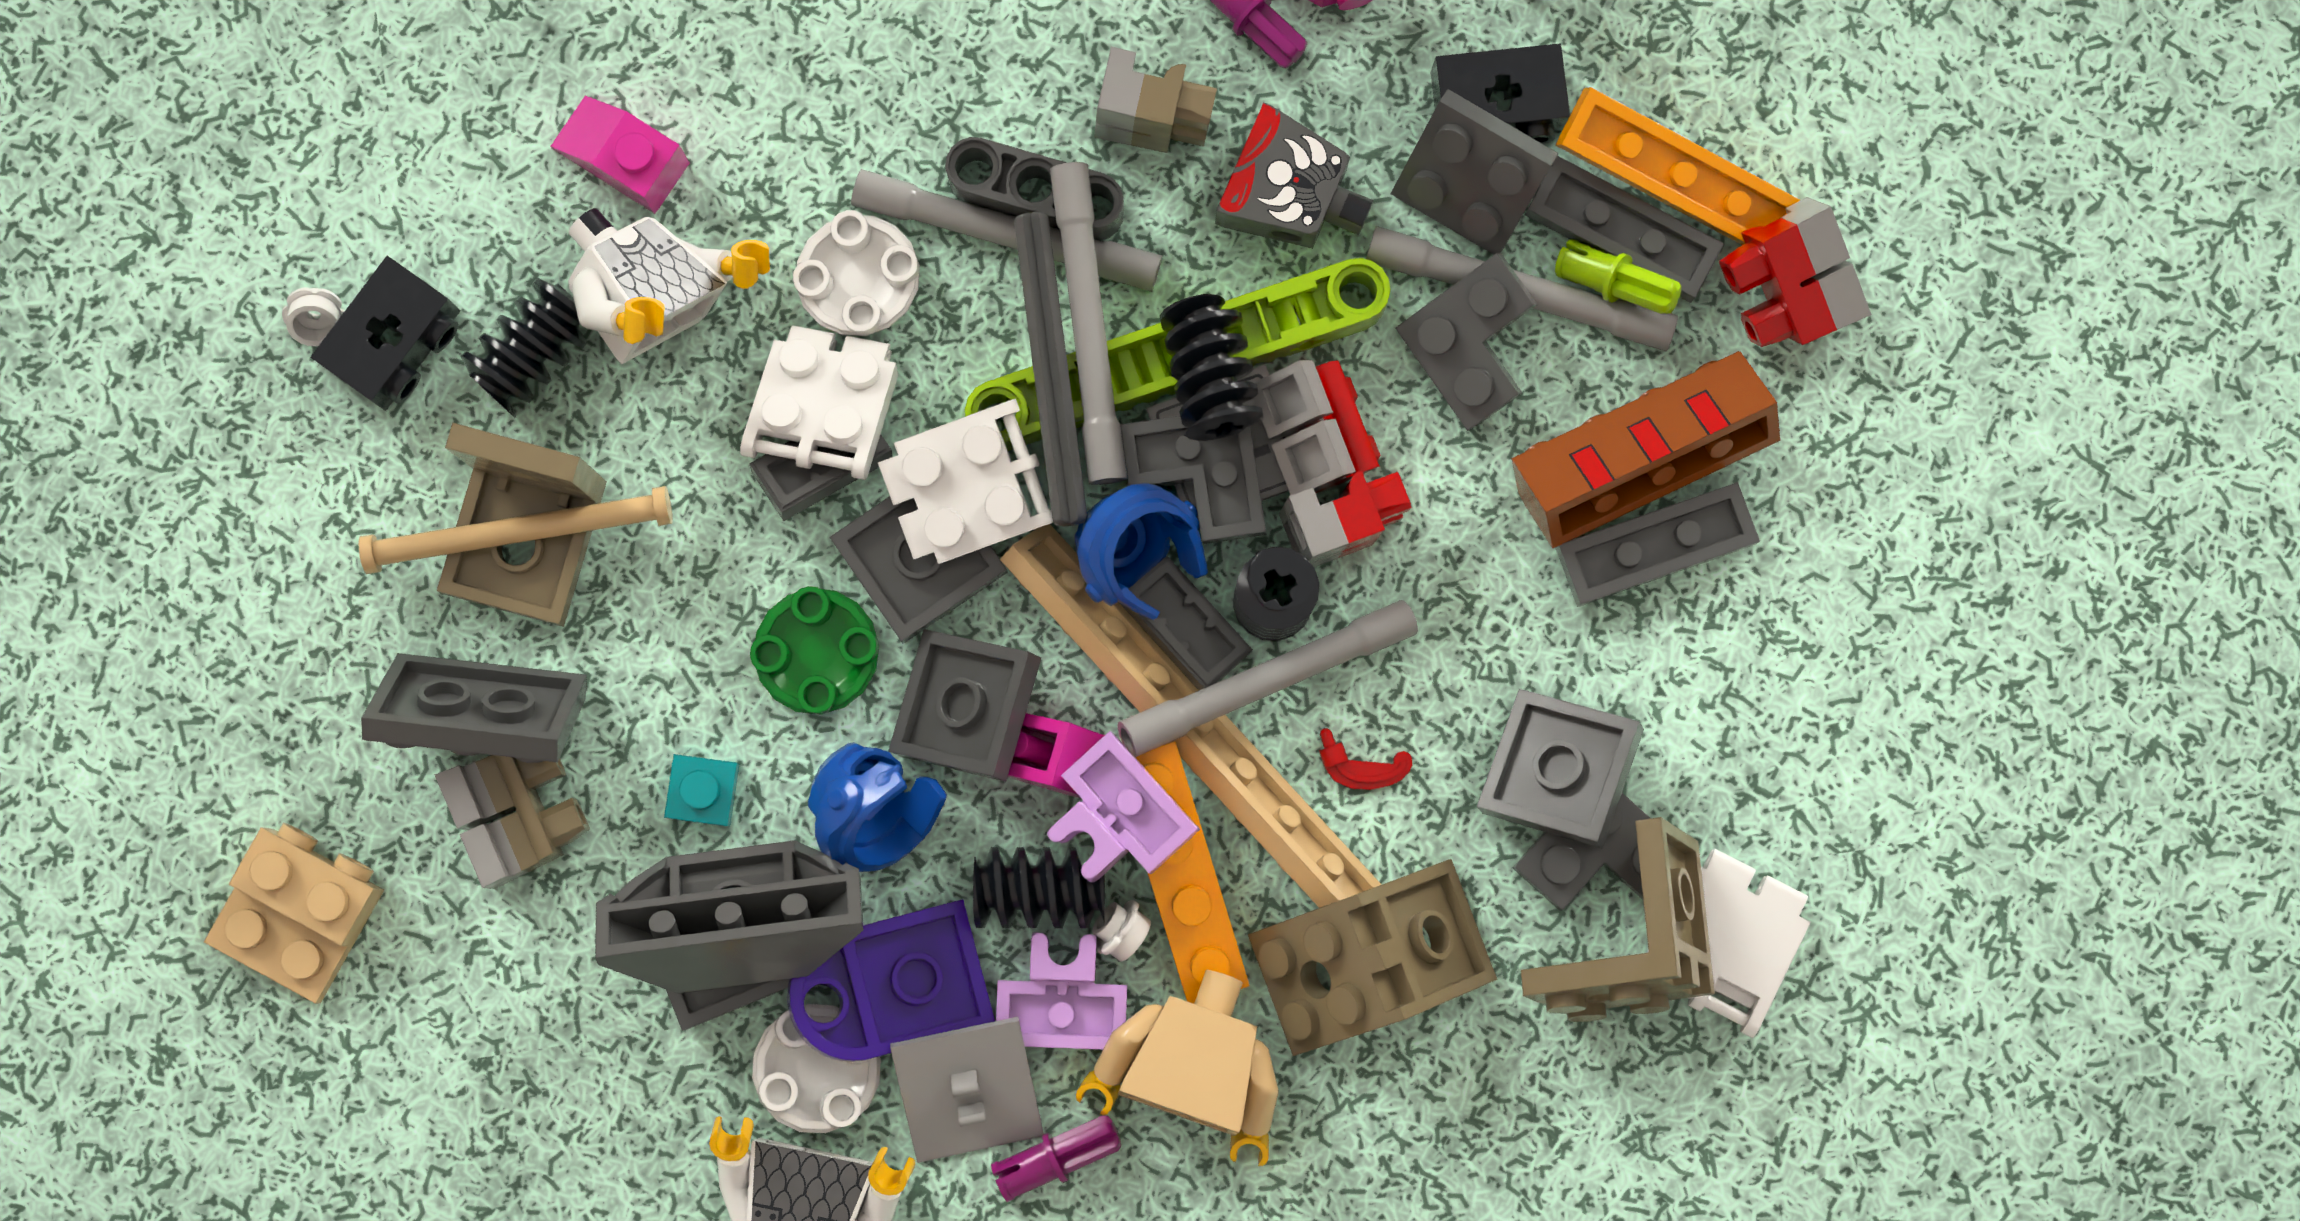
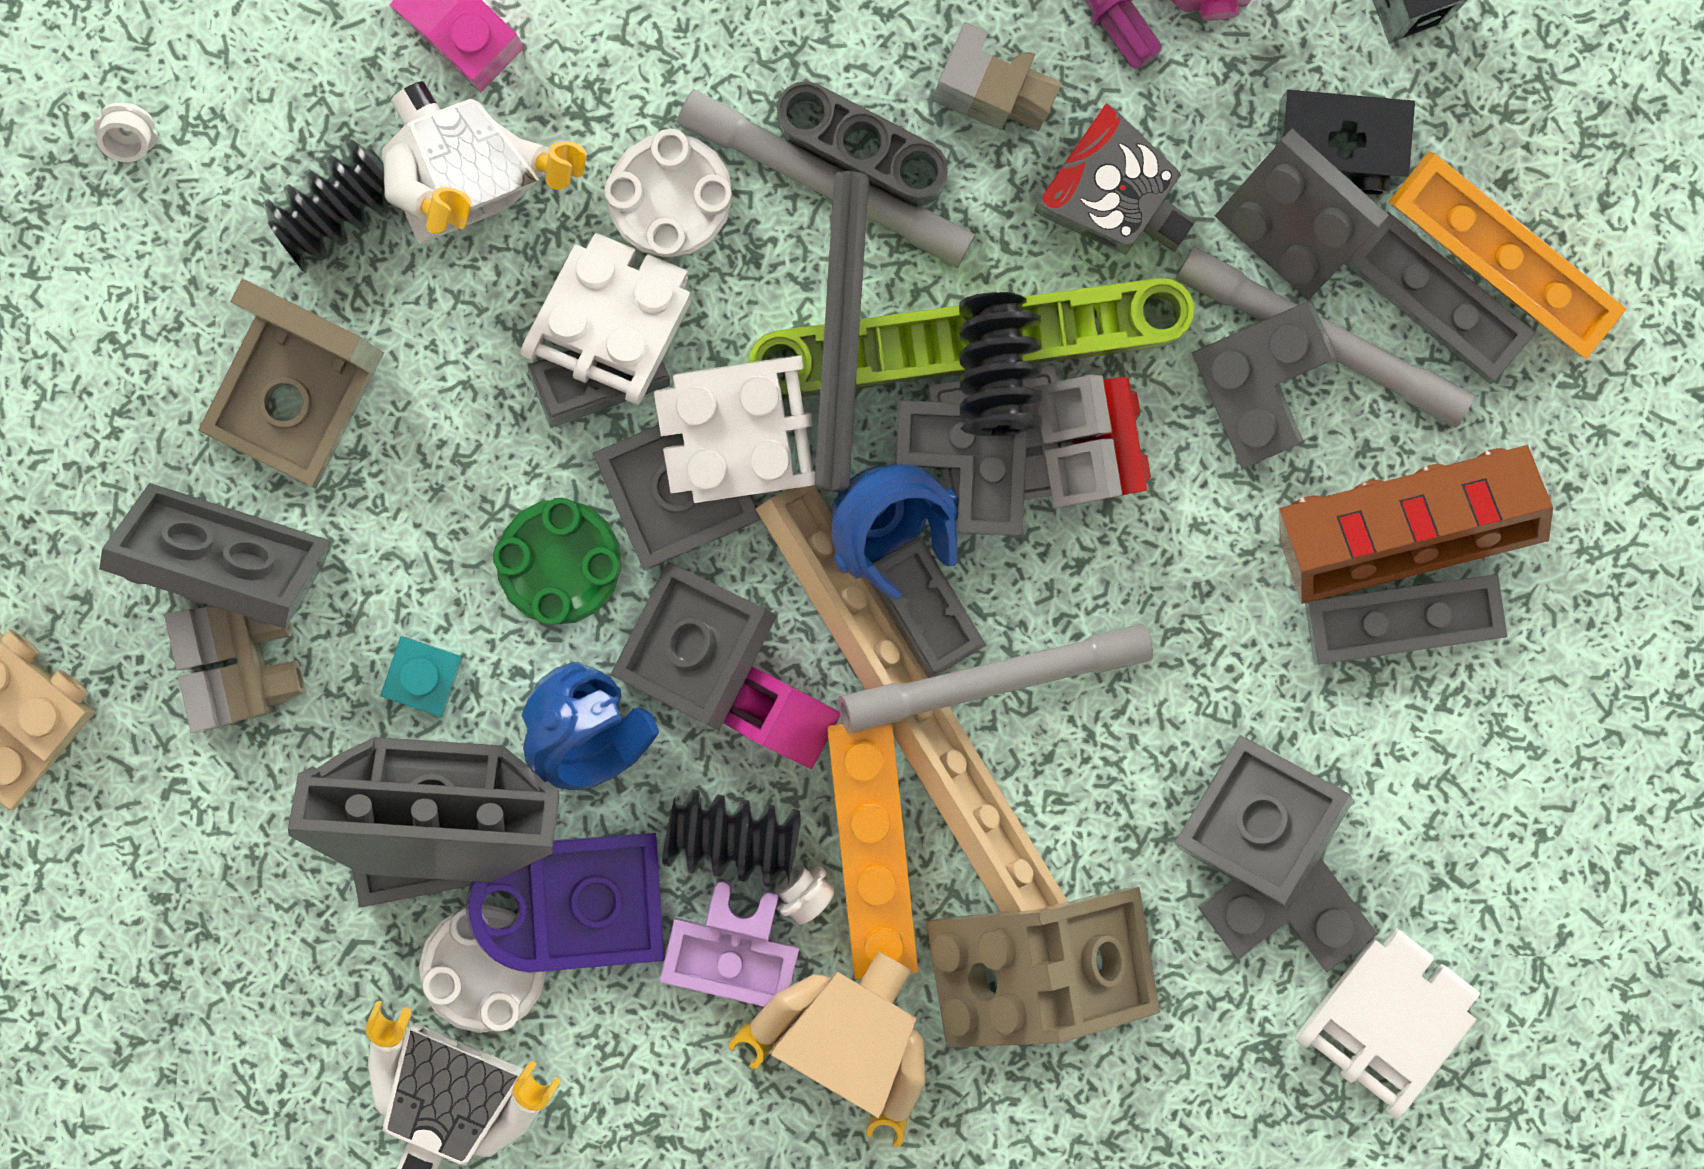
camera: 15 degrees right, 5 degrees up
(394, 301) = (160, 173): black brick -> none
(514, 530) = (285, 386): tan bar -> none
(967, 1089) = (624, 1018): light grey piece -> none
(1056, 1157) = (698, 1100): magenta axle -> none
(1100, 427) = (895, 187): light grey piece -> none
(1121, 811) = (826, 784): lavender plate -> none
(1282, 570) = (1028, 574): black piece -> none
(1345, 523) = (1103, 542): hips -> none
(1361, 774) = (1066, 785): red piece -> none
(1617, 277) = (1422, 347): lime axle -> none
(1676, 936) = (1340, 1012): dark tan bracket -> none
(1801, 274) = (1606, 381): red hips -> none

